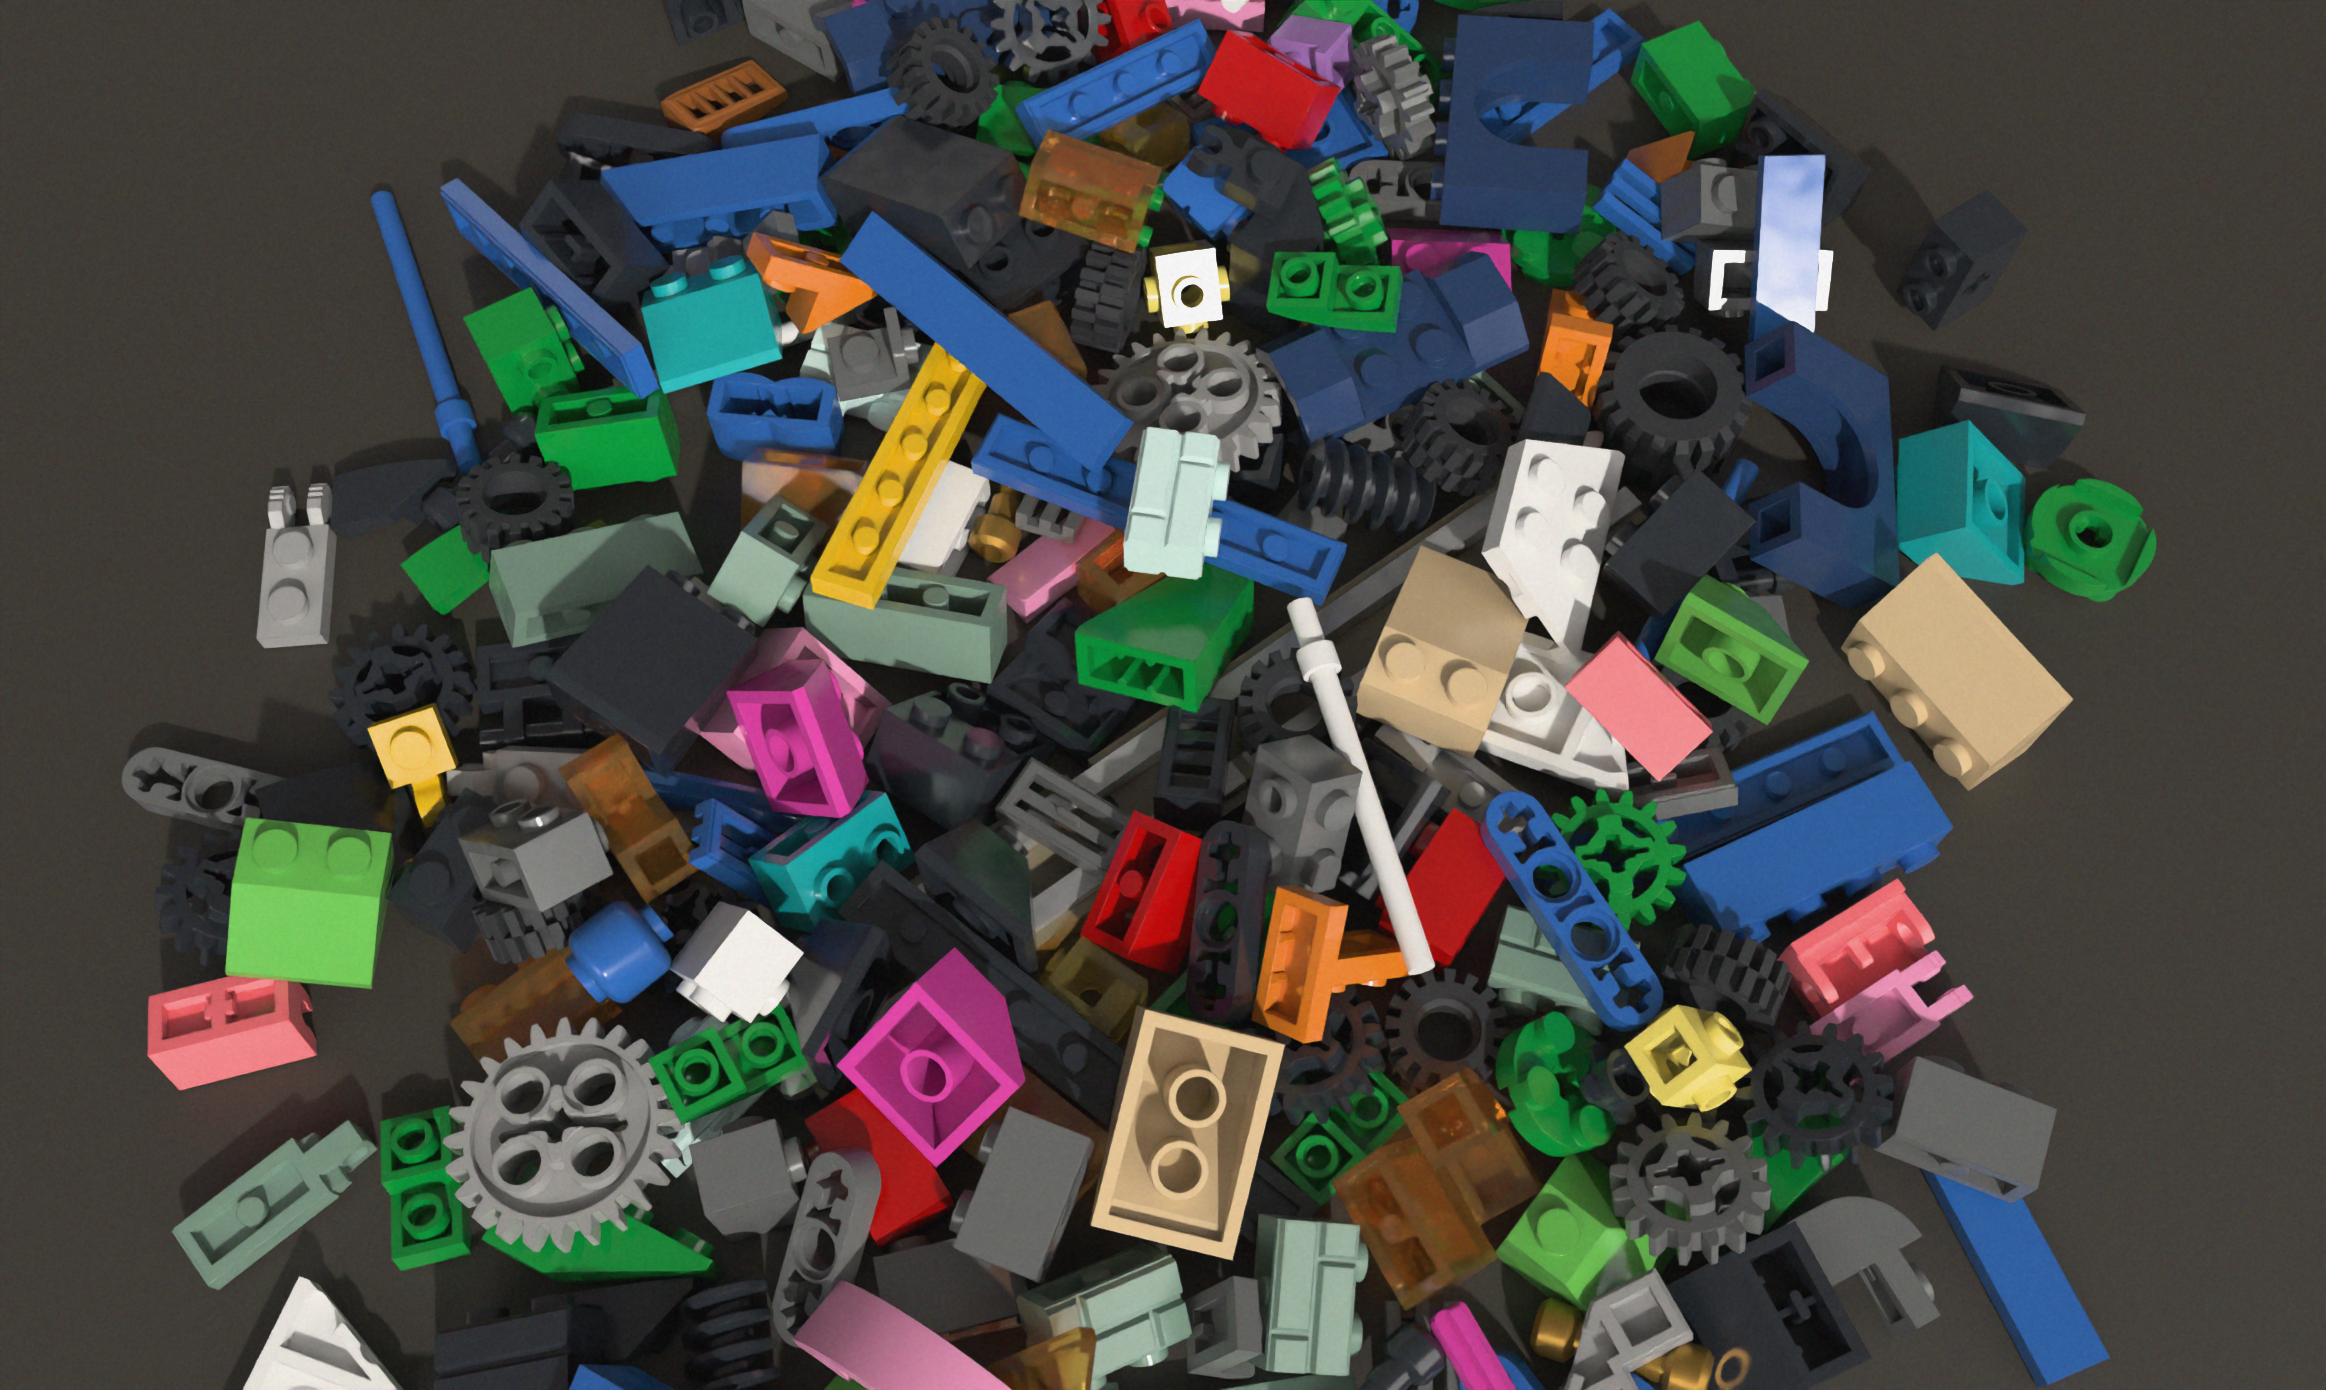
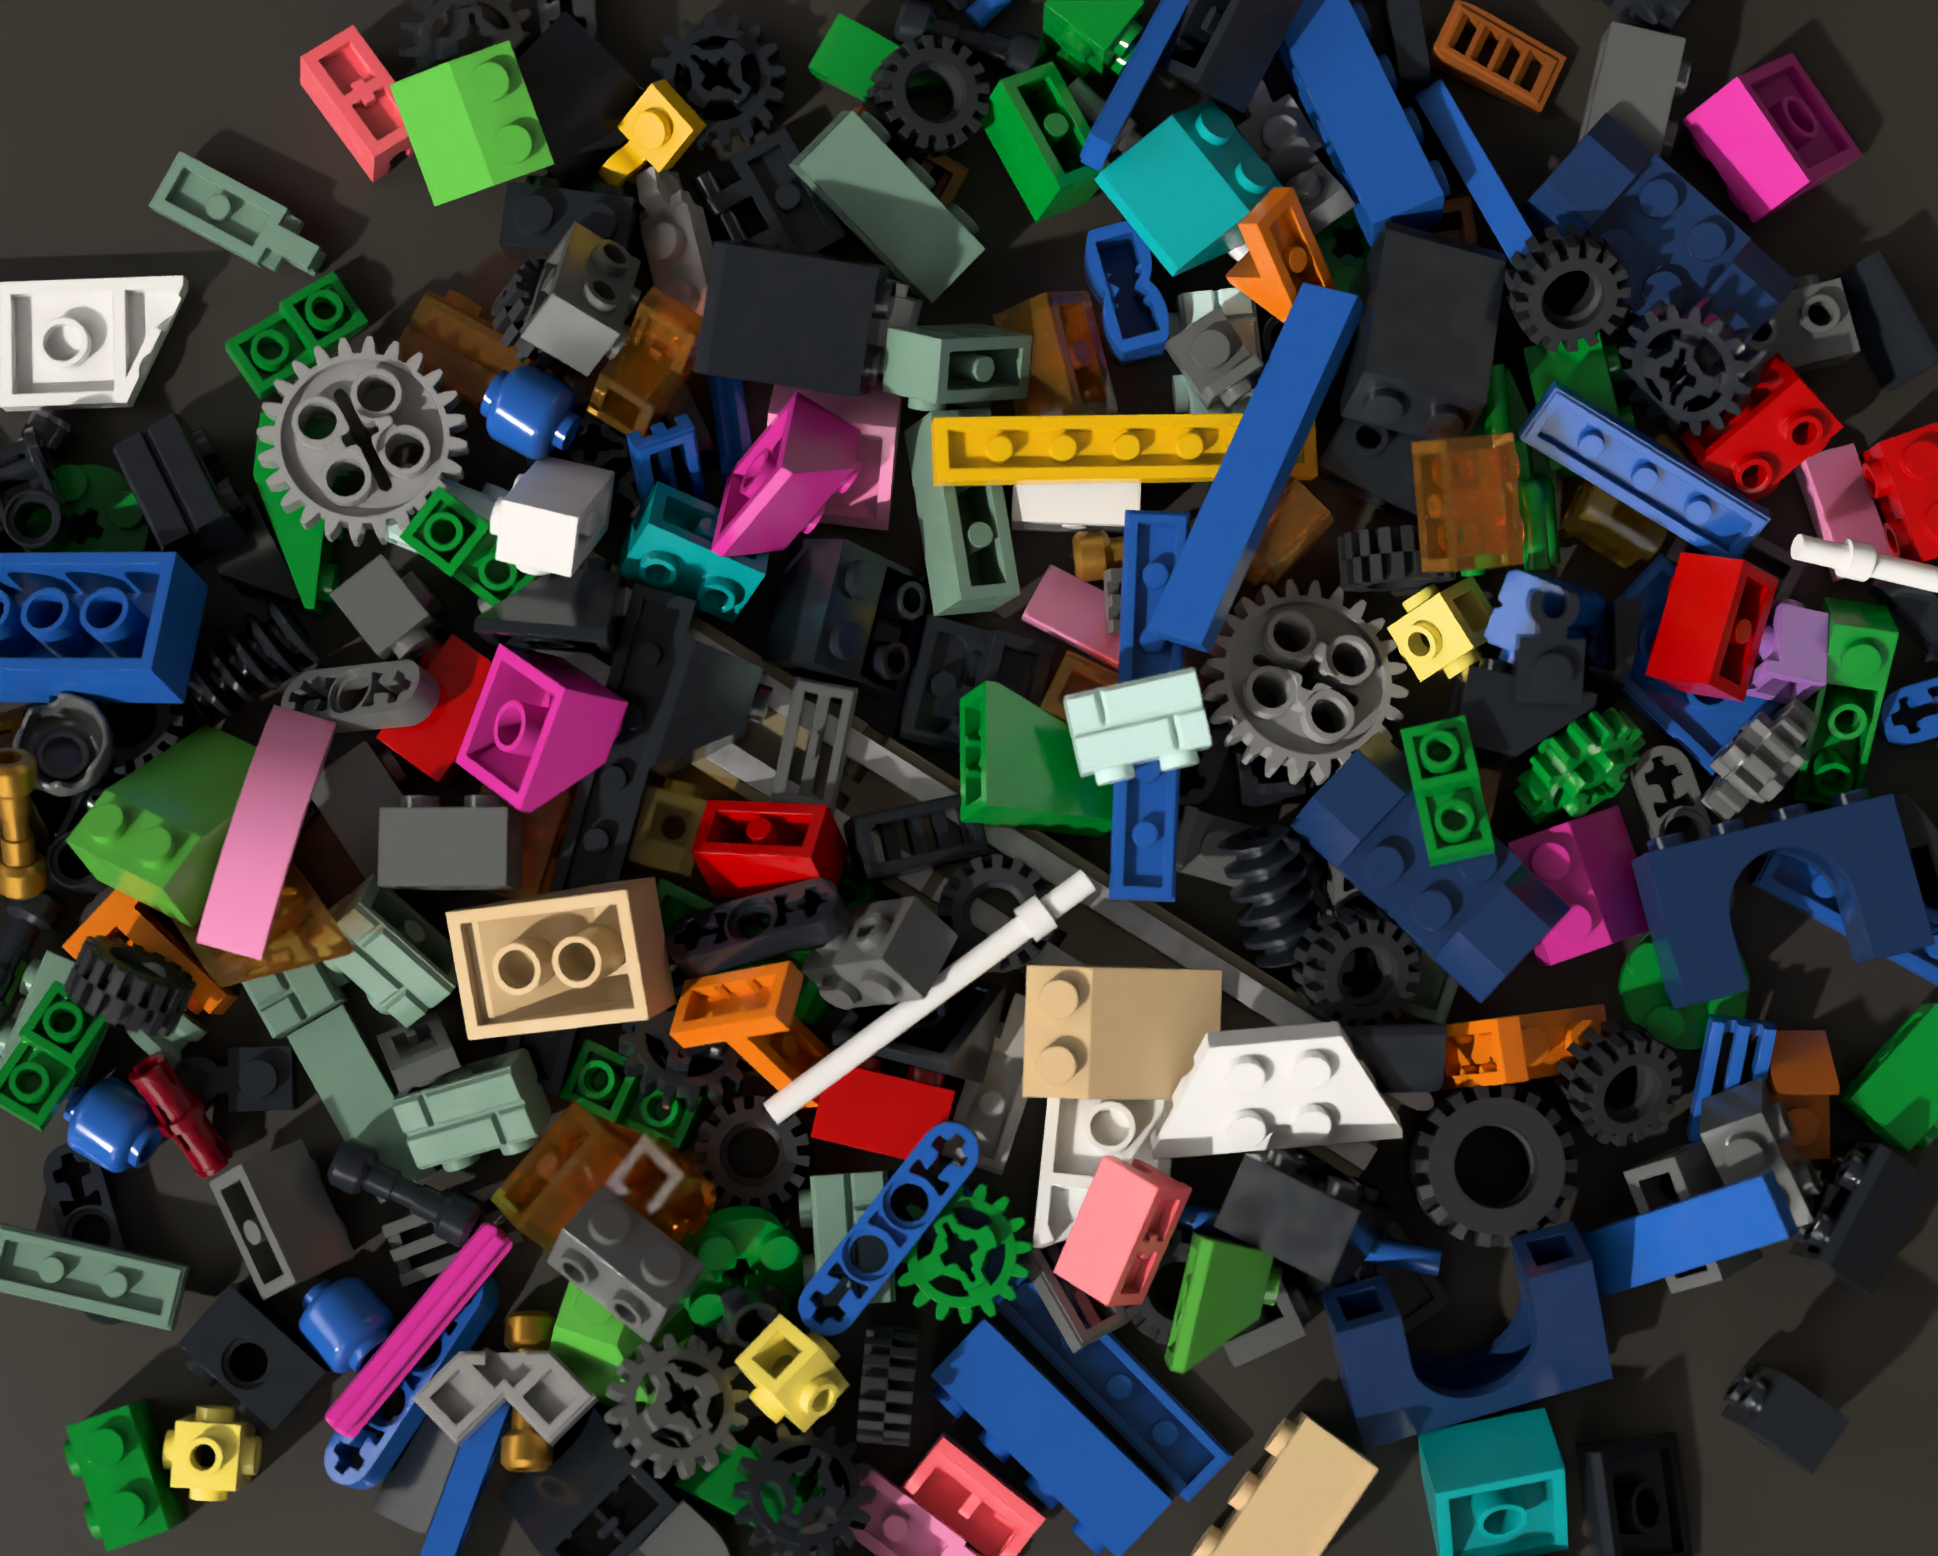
camera: 70 degrees right, 20 degrees up
(1528, 1172) = (625, 1263): none -> dark grey brick

